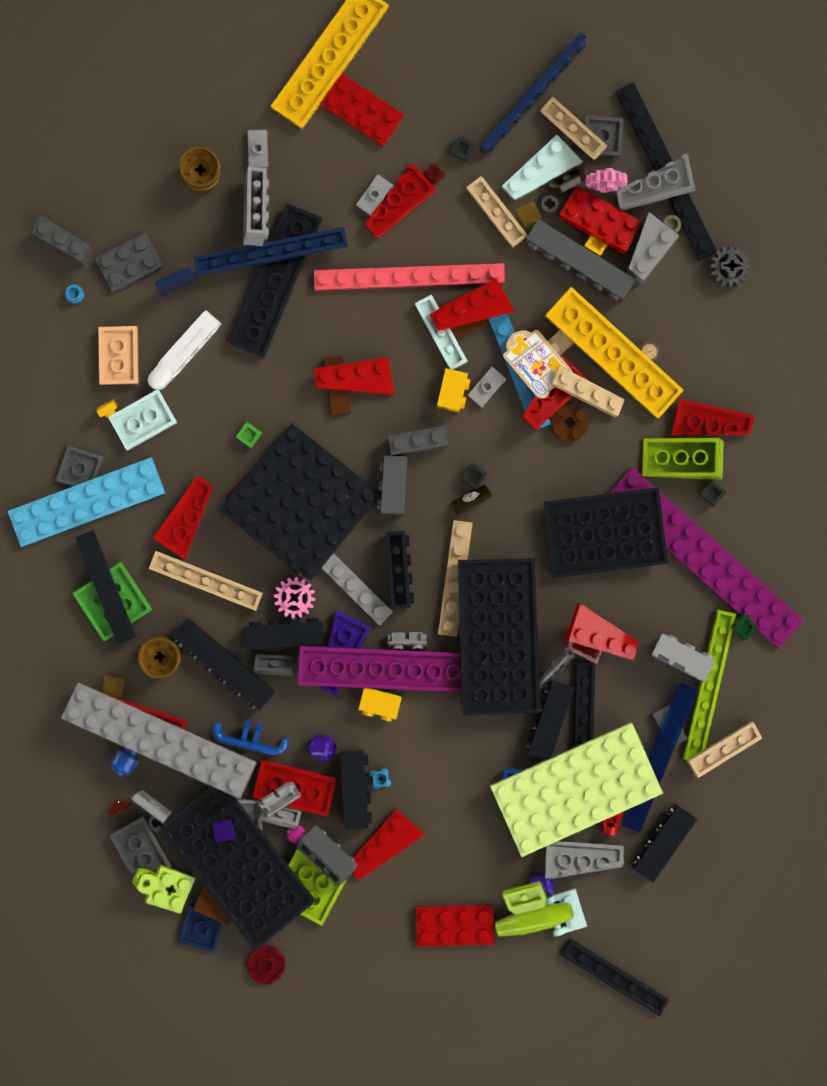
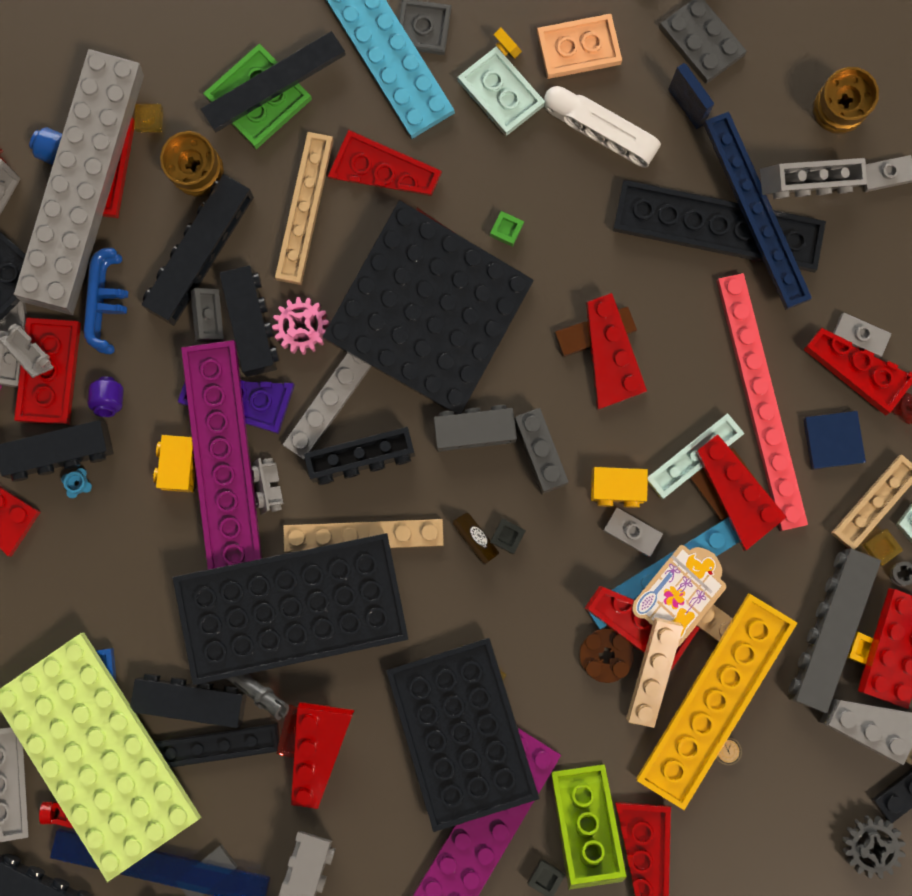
camera: 80 degrees right, 5 degrees down
(447, 231) = (834, 440): none -> dark blue tile

